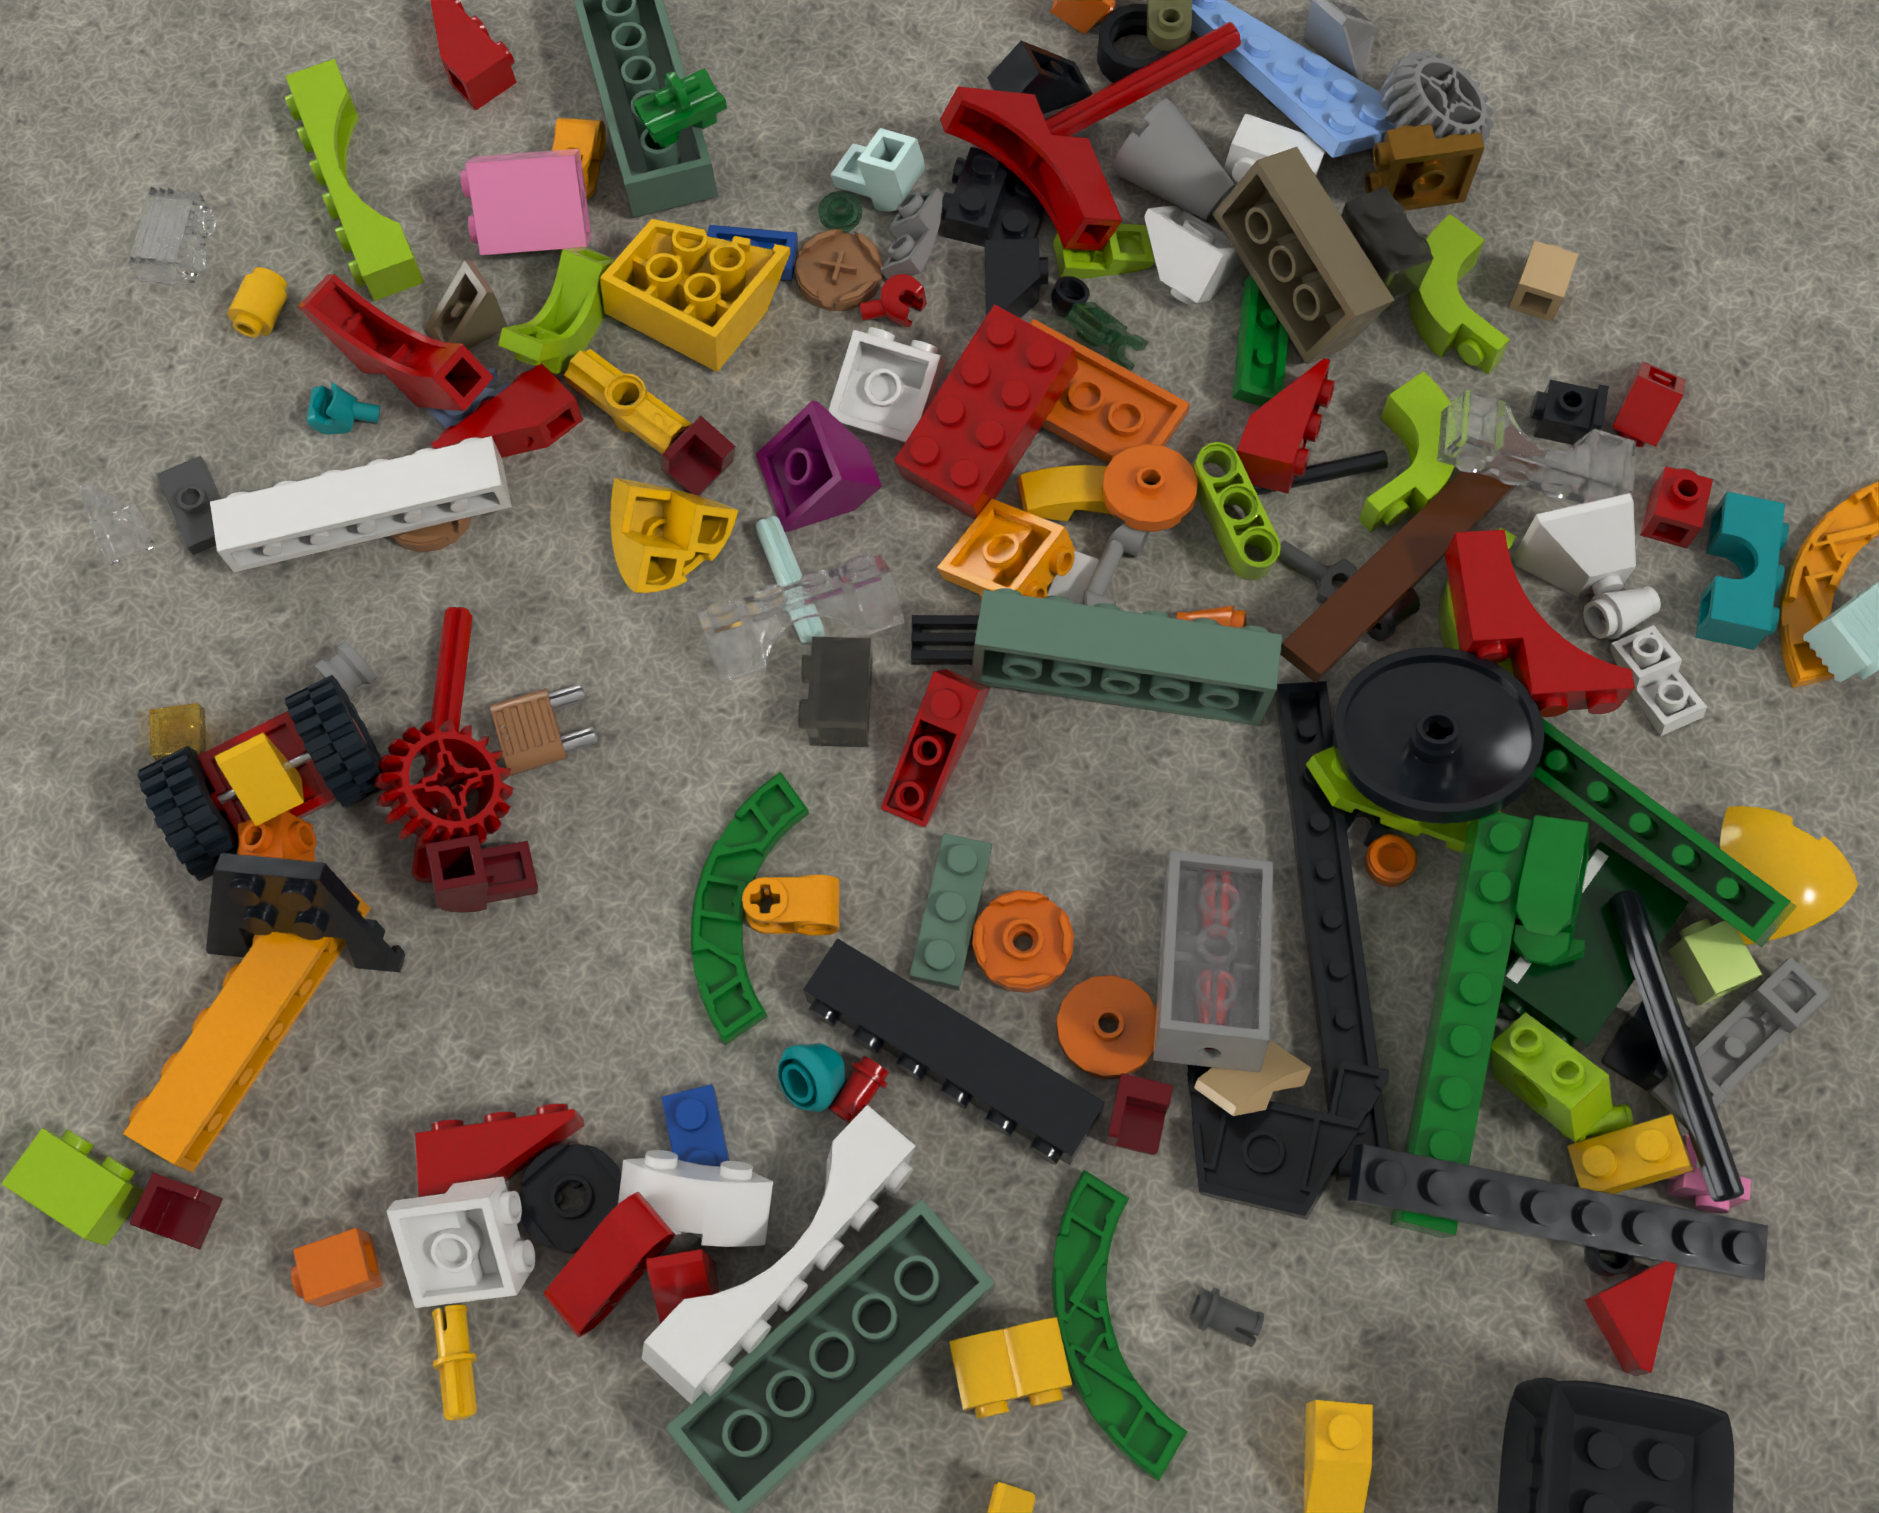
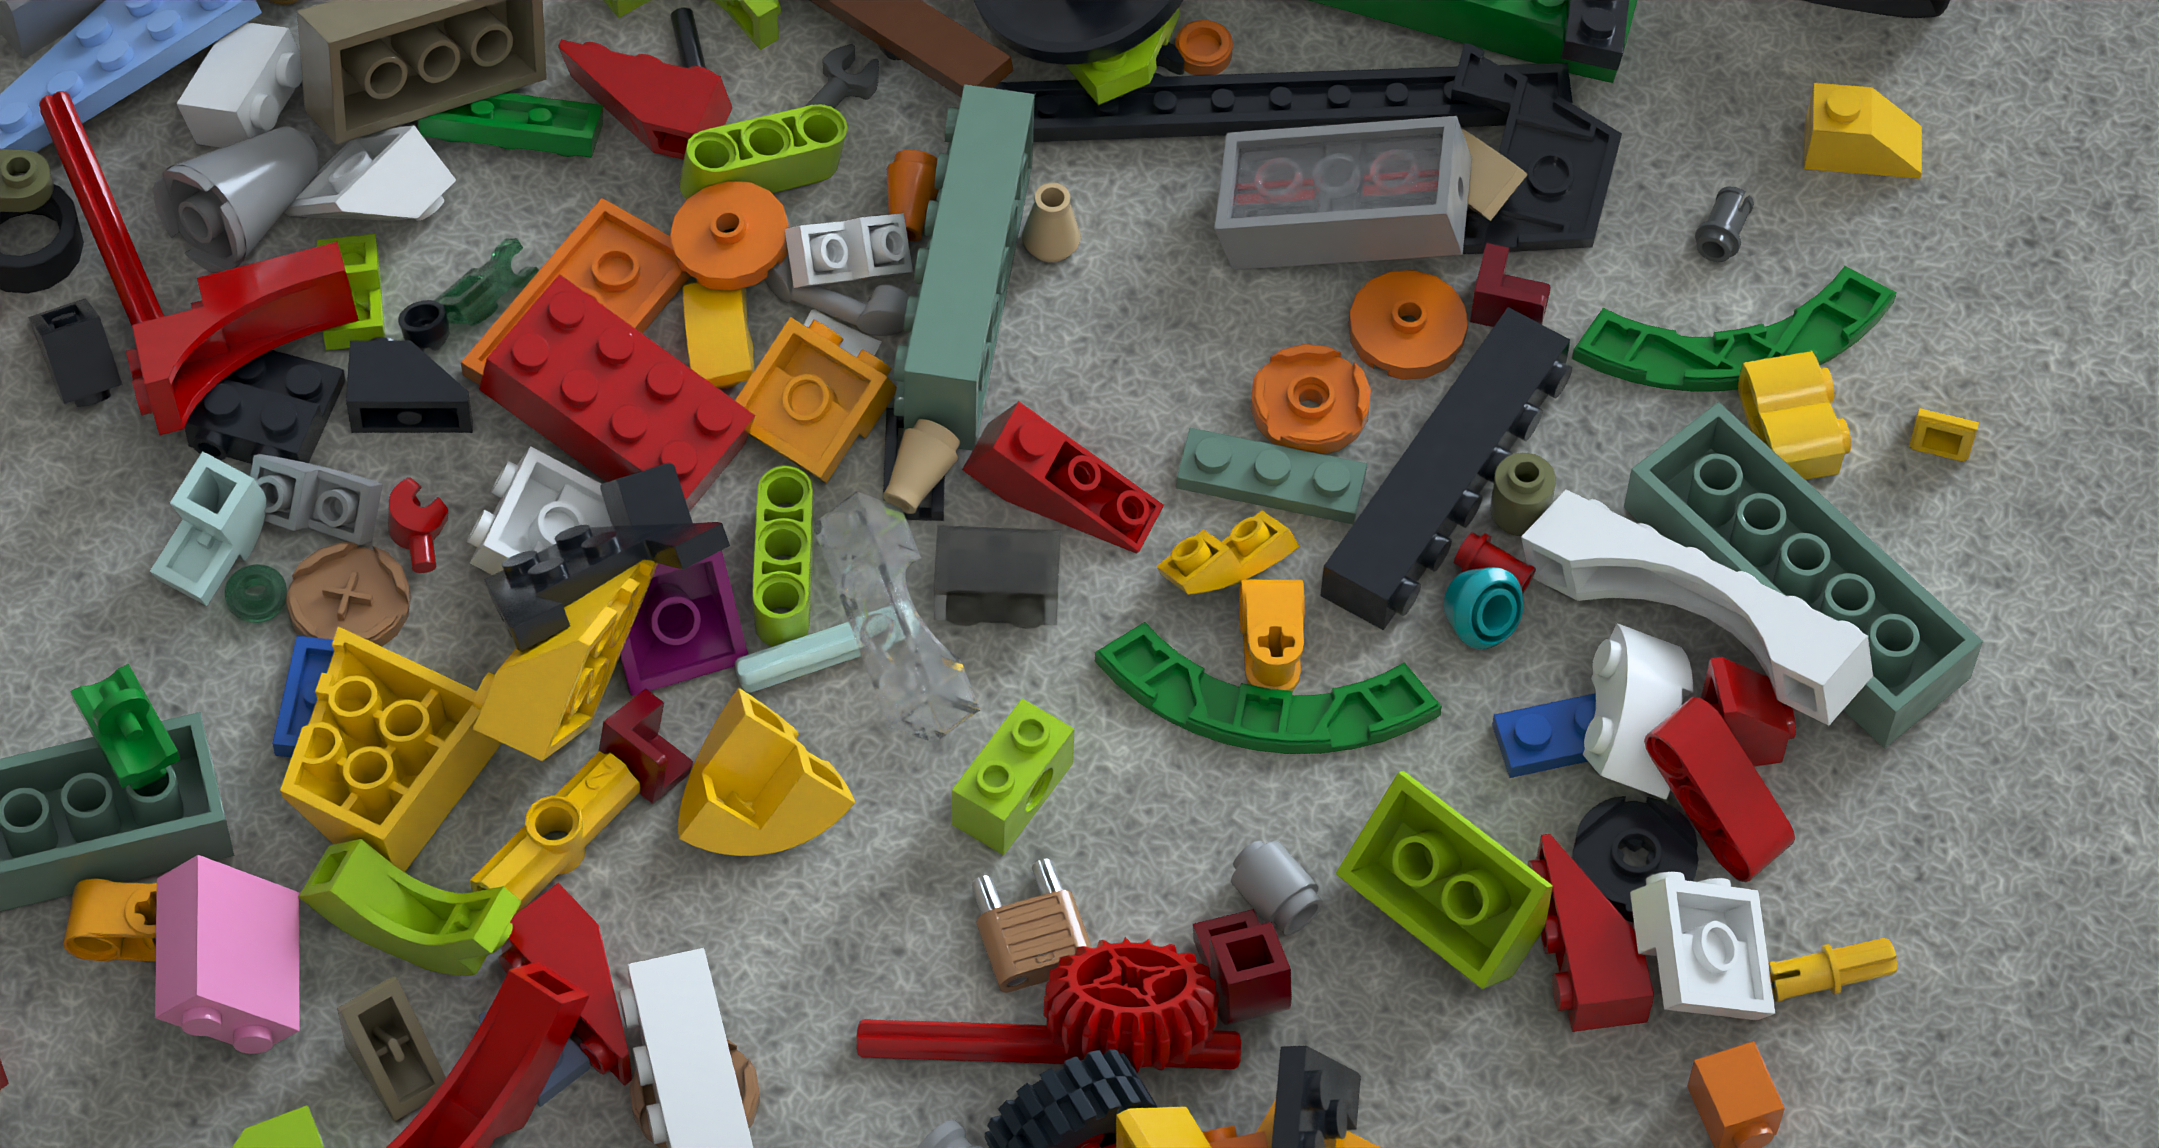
camera: 95 degrees left, 10 degrees down
(528, 1028) = (1448, 883): none -> lime slope
(558, 904) = (1276, 886): none -> light grey brick
(660, 706) = (1012, 776): none -> lime brick
(727, 373) = (556, 686): none -> yellow wedge
(807, 367) = (539, 585): none -> black wing
(845, 530) = (780, 533): none -> lime beam
(858, 864) = (1207, 564): none -> yellow slope
(883, 436) = (646, 498): none -> black panel
(922, 1127) = (1521, 492): none -> olive brick
(944, 634) = (921, 462): none -> tan cone
(1143, 570) = (848, 250): none -> white slope
(1183, 733) = (1051, 226): none -> tan cone

